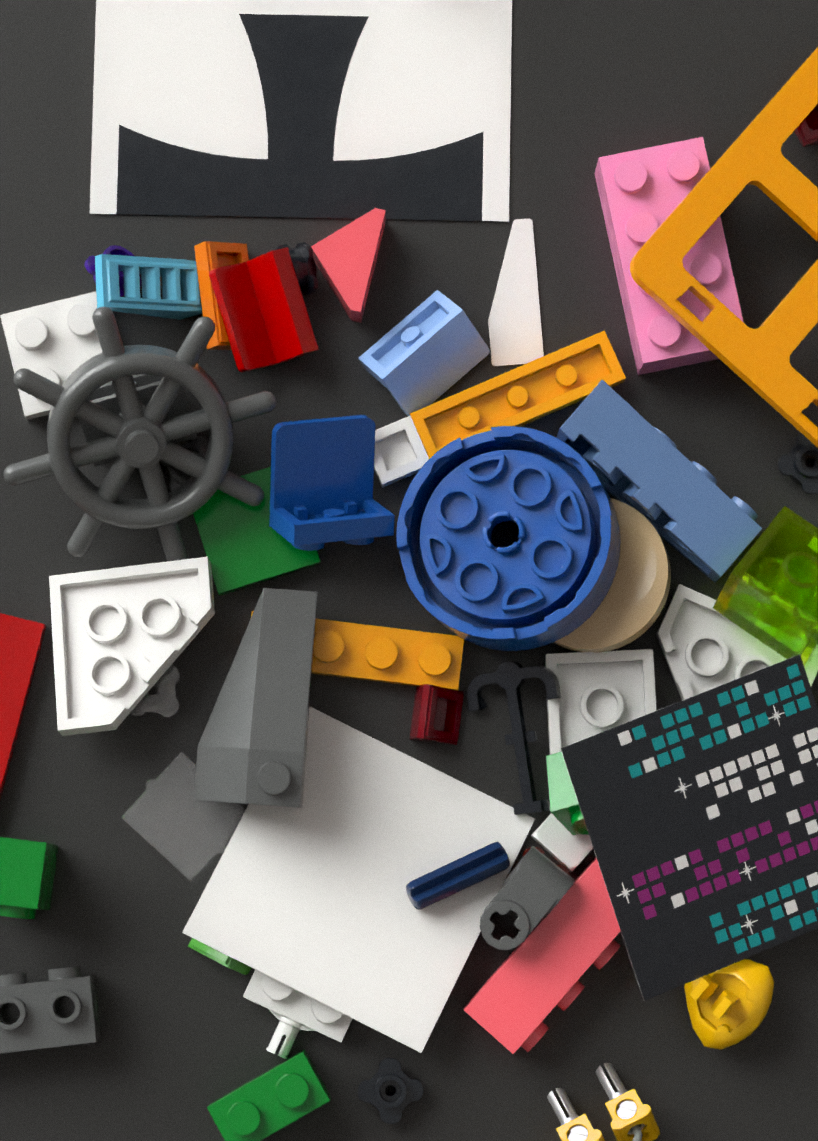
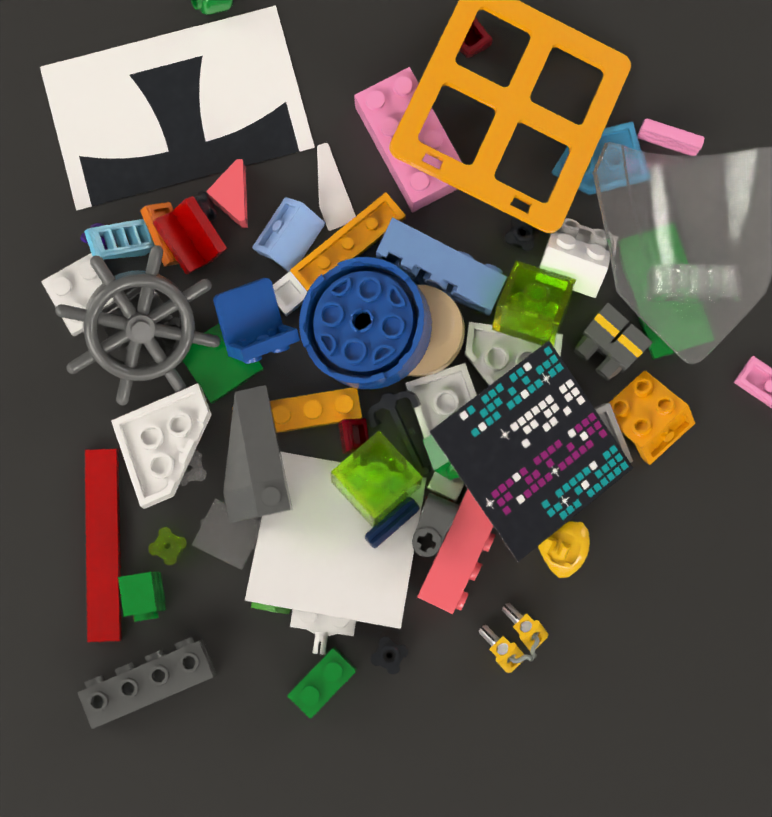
camera: 15 degrees left, 0 degrees up
(81, 791) = (158, 547): none -> clear neon green plate
(452, 797) = (376, 478): none -> clear neon green brick

